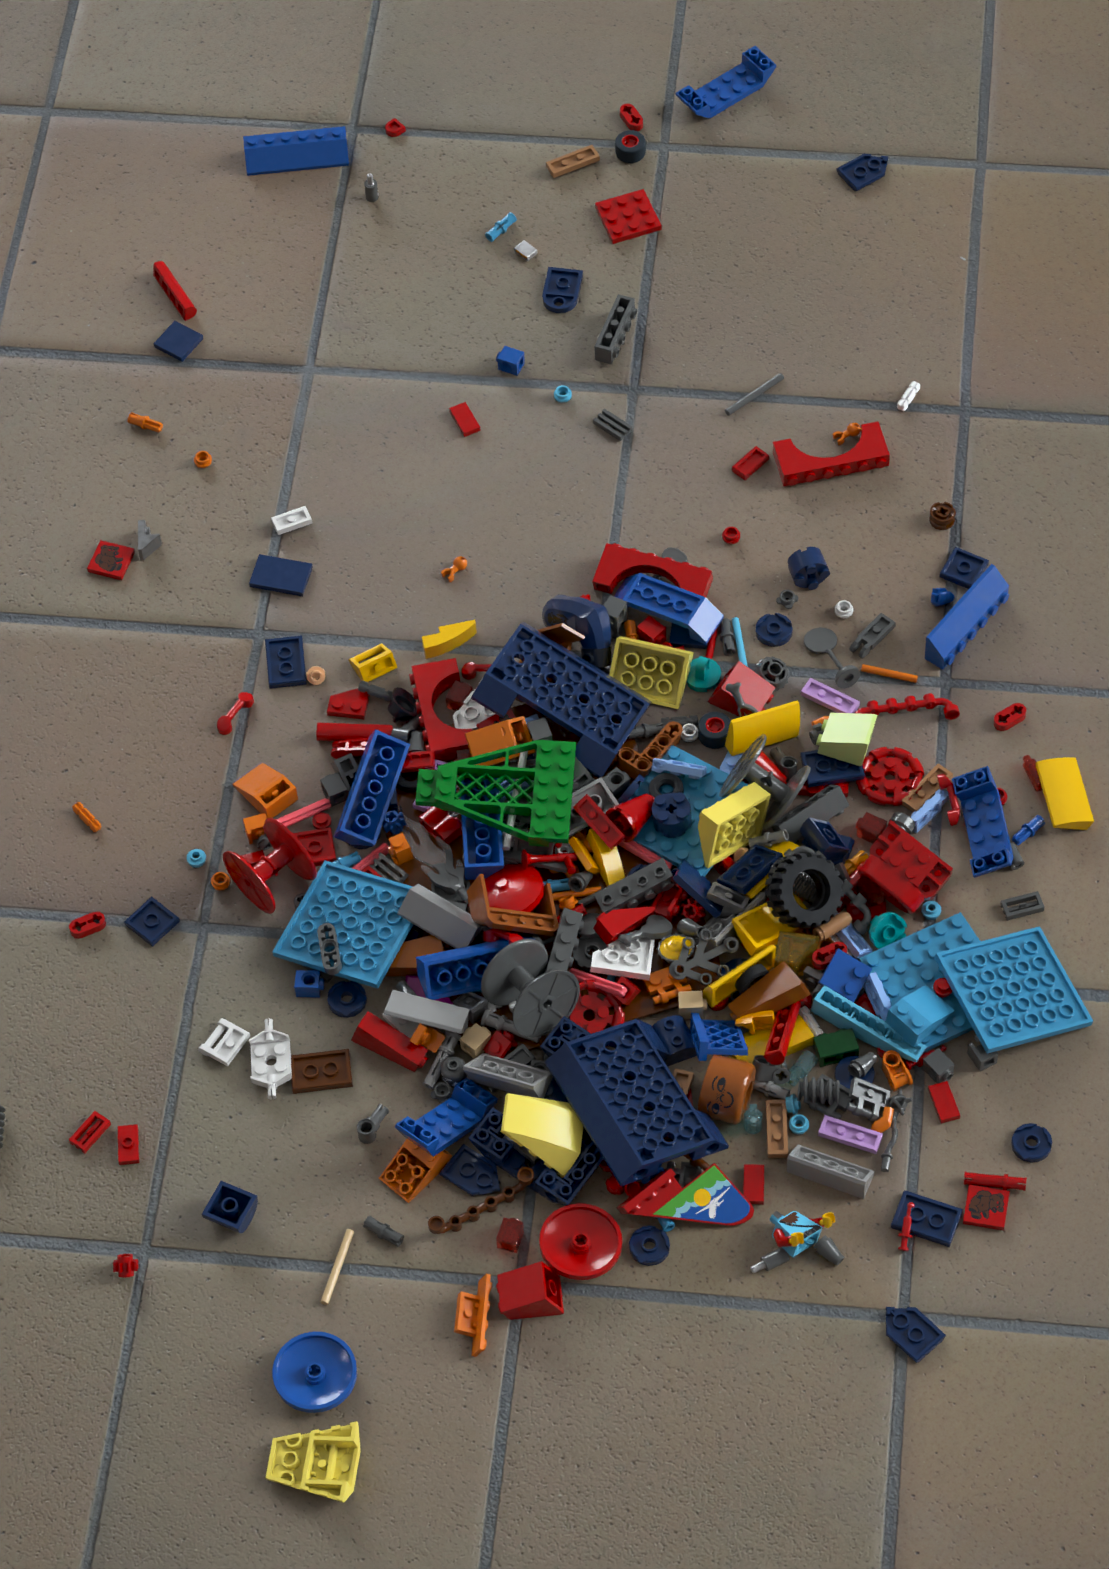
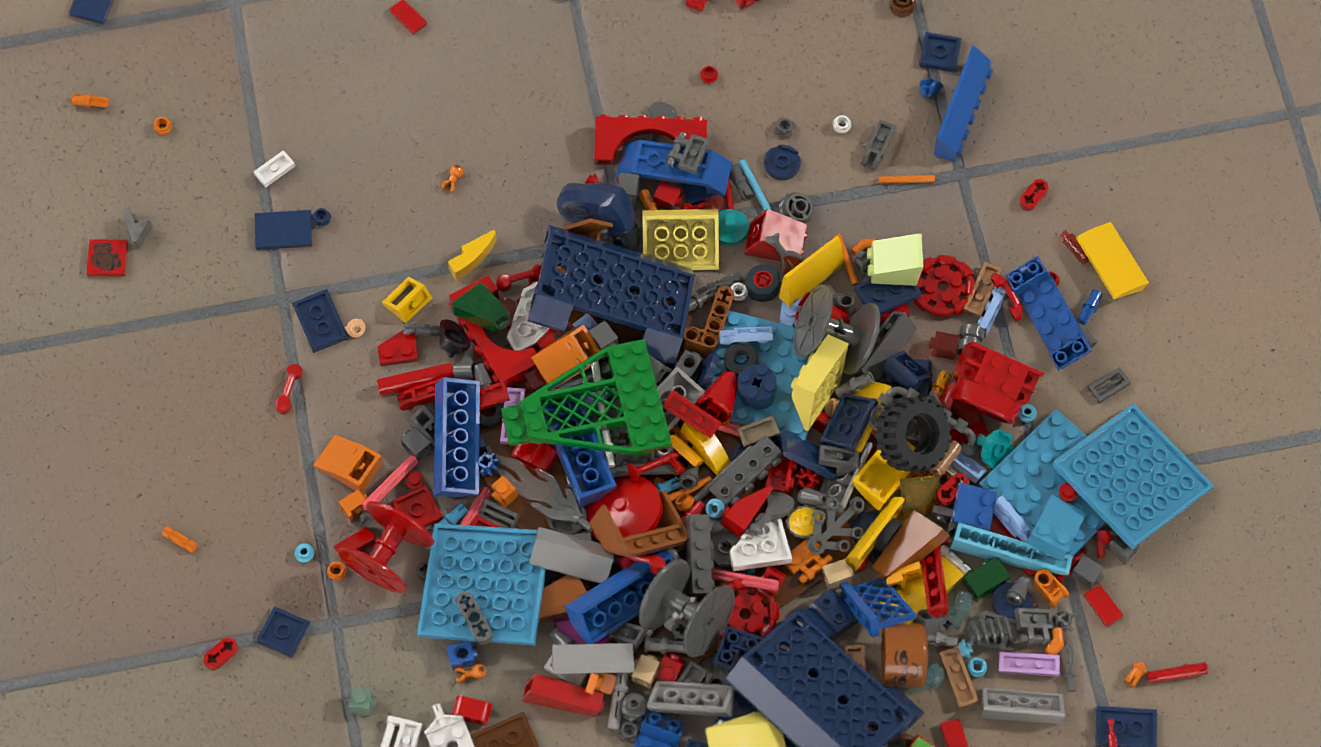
camera: 20 degrees left, 10 degrees up
(200, 999) = (362, 701): none -> sand green brick
(301, 1034) = (472, 710): none -> red beam
(318, 1002) = (475, 671): none -> orange arm
(319, 568) = (321, 212): none -> dark blue plate
(350, 1008) = (506, 670): dark blue tile -> none
(435, 682) = (481, 308): none -> dark green slope
(592, 913) = (710, 508): none -> medium azure plate
(669, 853) = (757, 430): none -> dark tan tile
(685, 595) = (693, 154): none -> dark grey plate
(692, 645) = (713, 202): none -> clear red cylinder
(804, 728) = (848, 264): none -> orange bar
(808, 568) = (796, 91): dark blue brick -> none
(823, 641) = (833, 162): dark grey piece -> none
(829, 697) = (860, 220): lavender plate -> none
(950, 710) = (937, 207): red bar -> none
(953, 1171) = (1136, 673): none -> orange pin
(964, 1040) = (1103, 538): none -> red plate
(986, 1207) = (1177, 701): tile -> none
(1031, 1153) = (1193, 634): dark blue tile -> none

